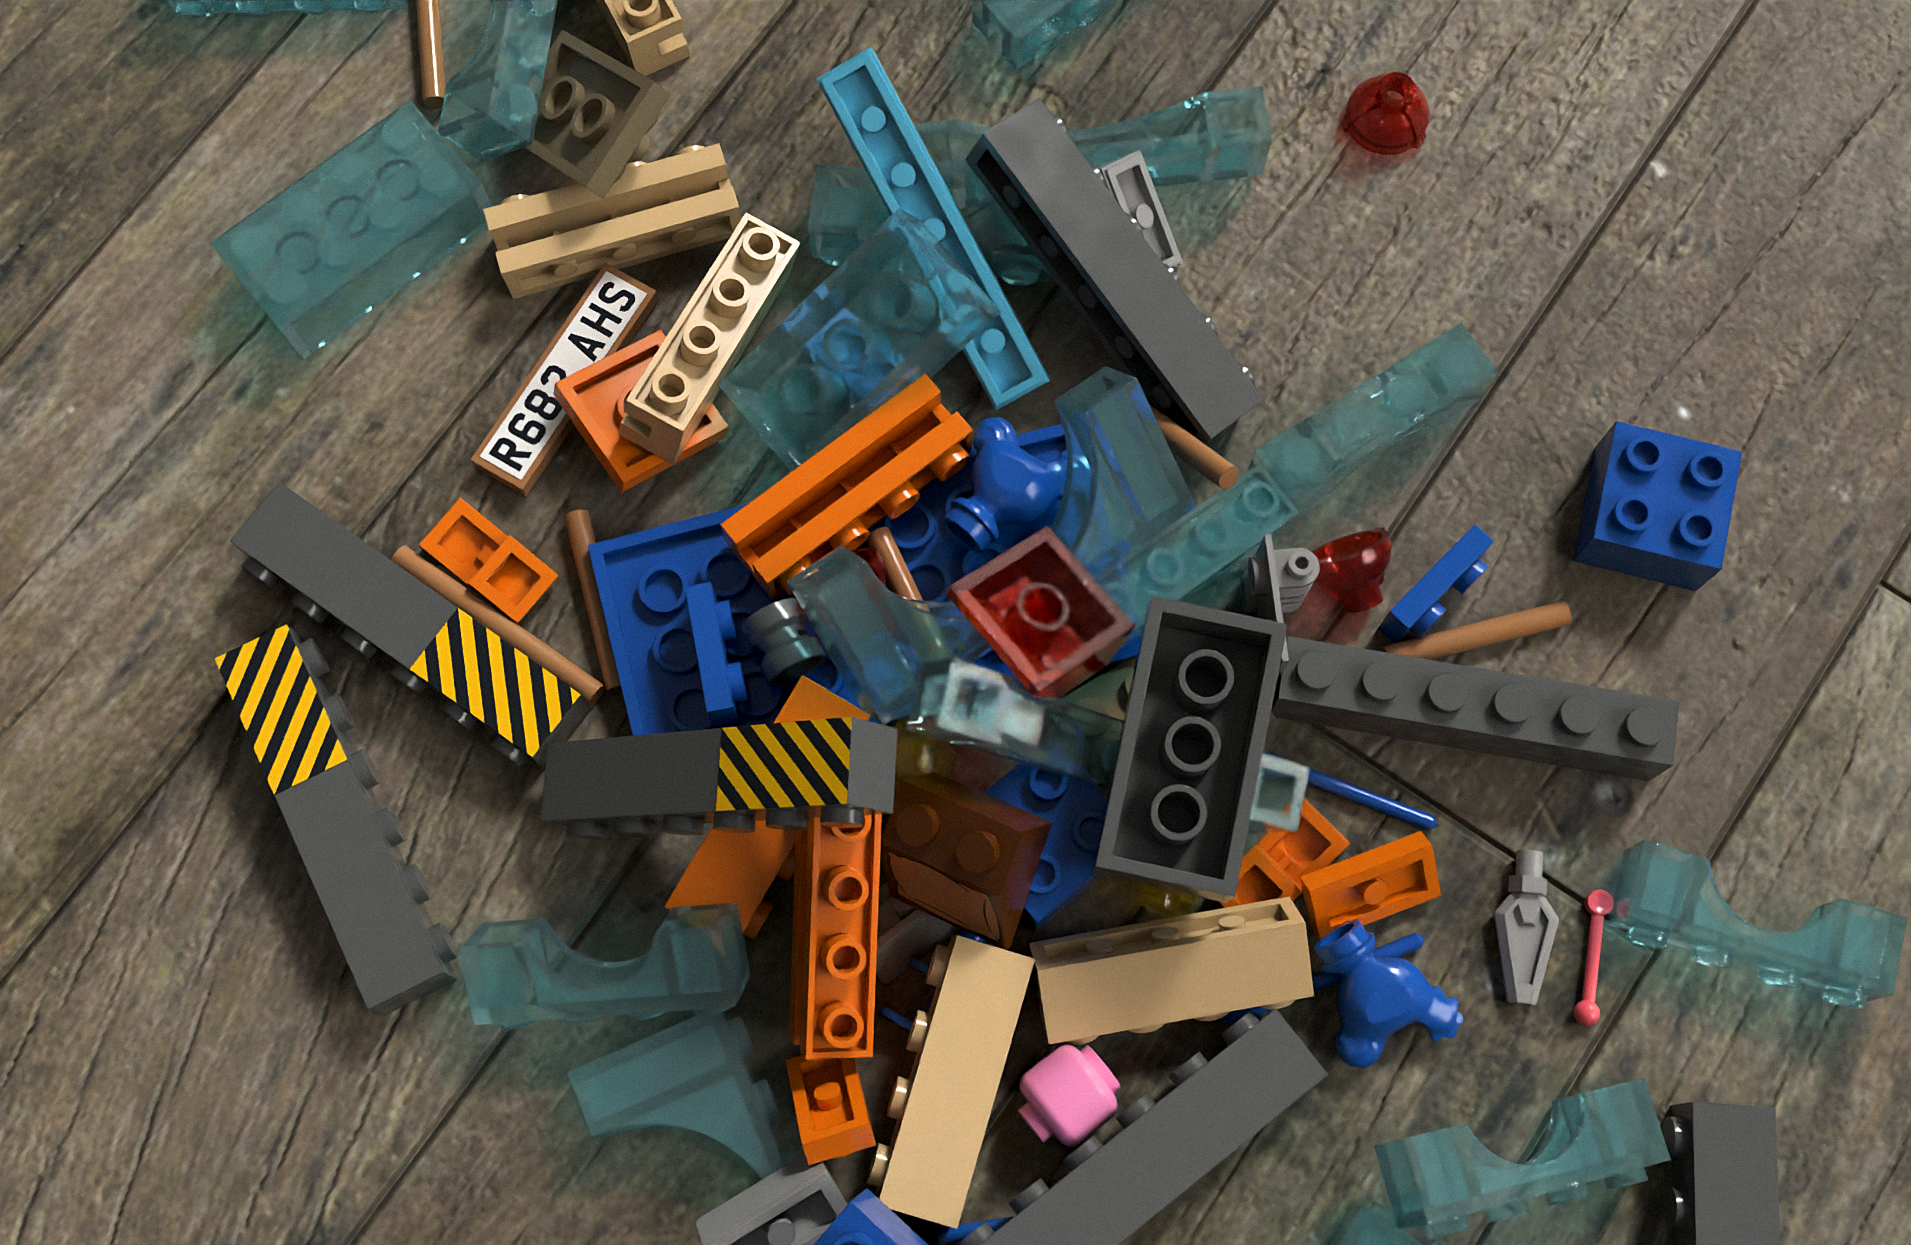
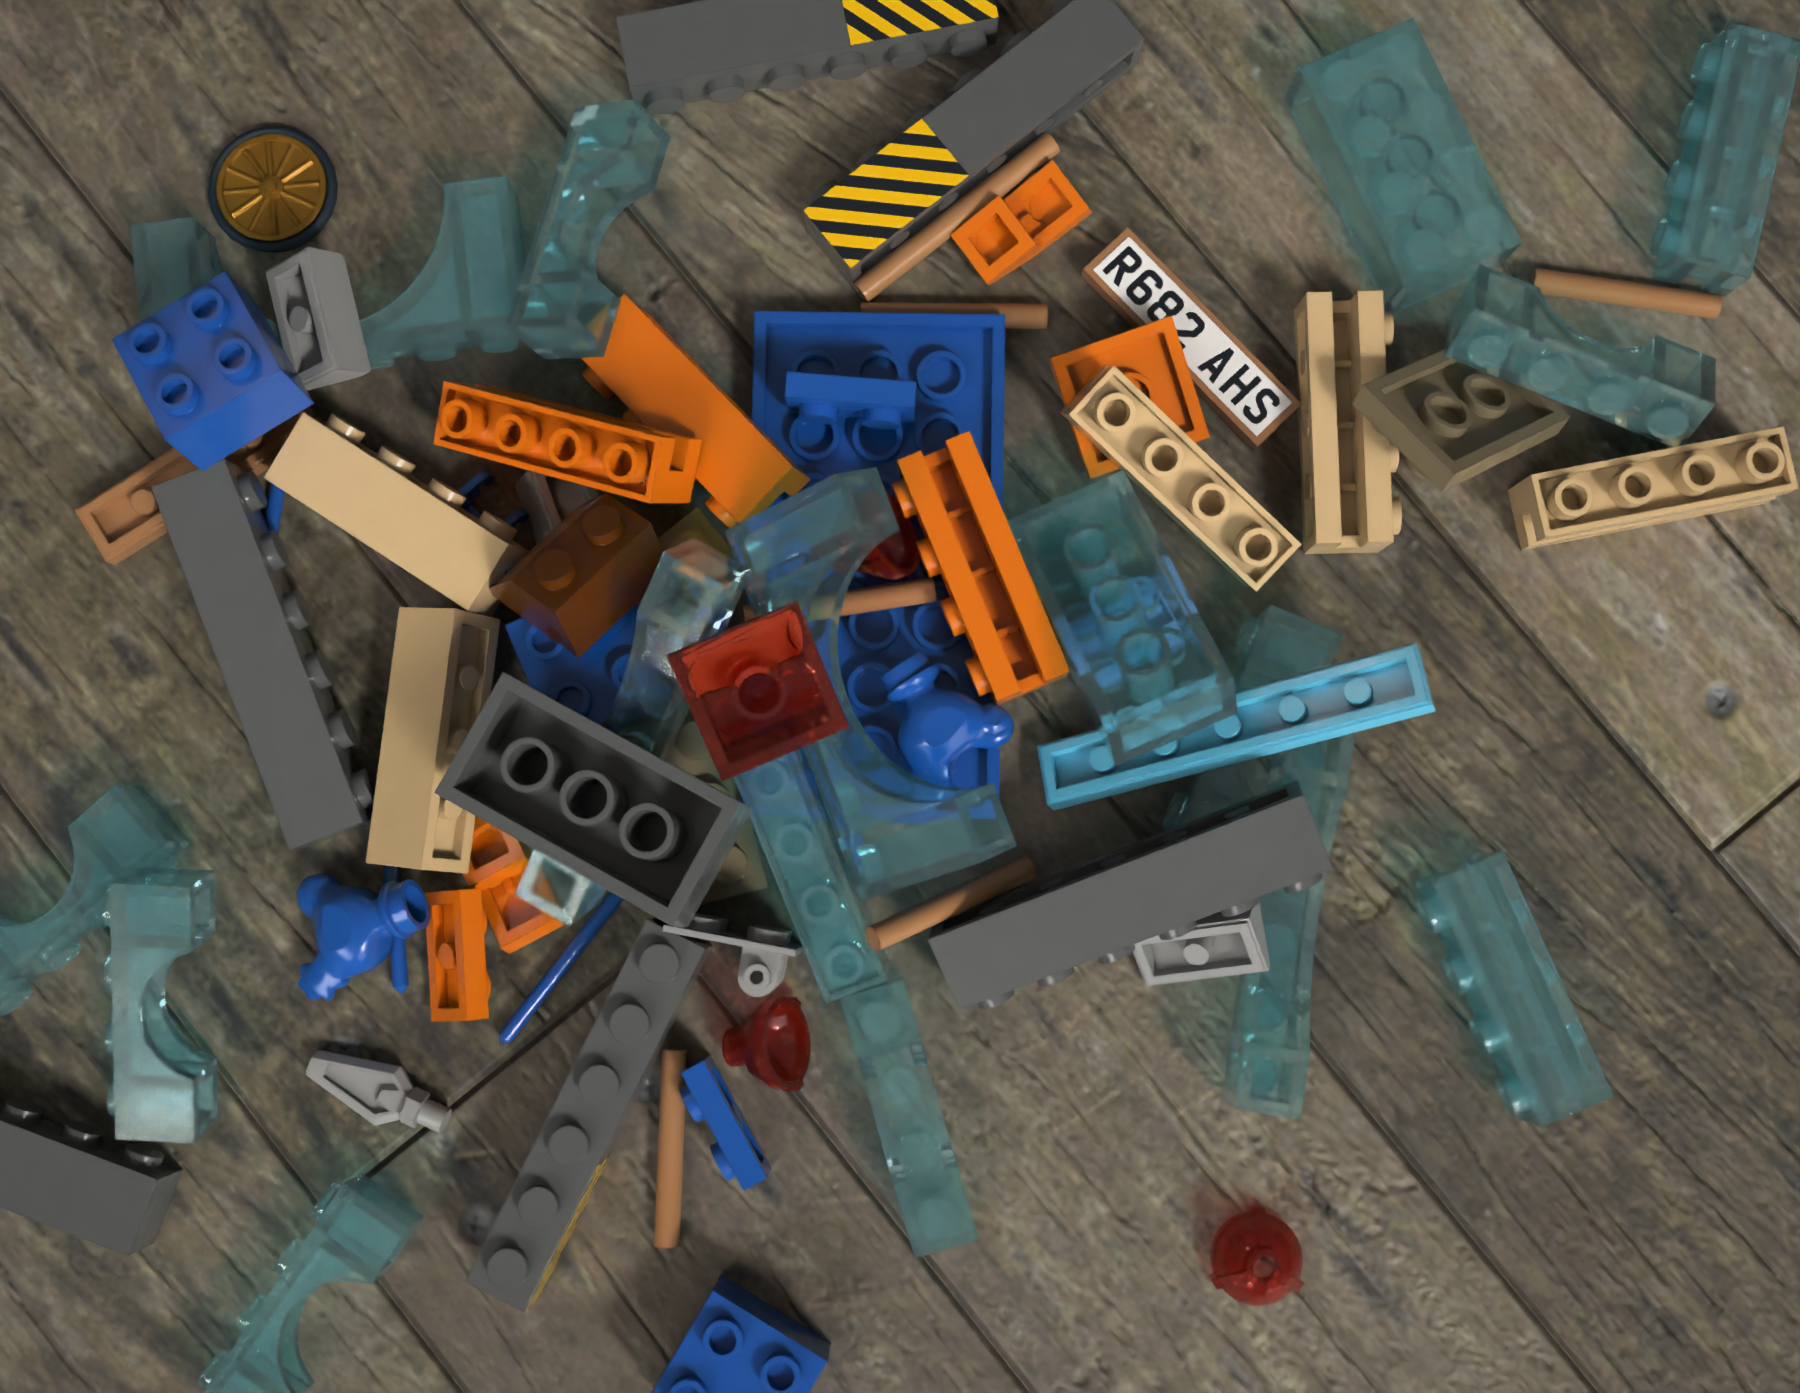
camera: 110 degrees right, 10 degrees up
(722, 778) = (701, 361): dark grey brick -> none
(782, 638) = (848, 455): dark grey wheel -> none
(829, 1107) = (396, 393): orange plate -> none
(1068, 1095) = (353, 614): bright pink head -> none
(1597, 904) = (378, 1171): coral hinge -> none

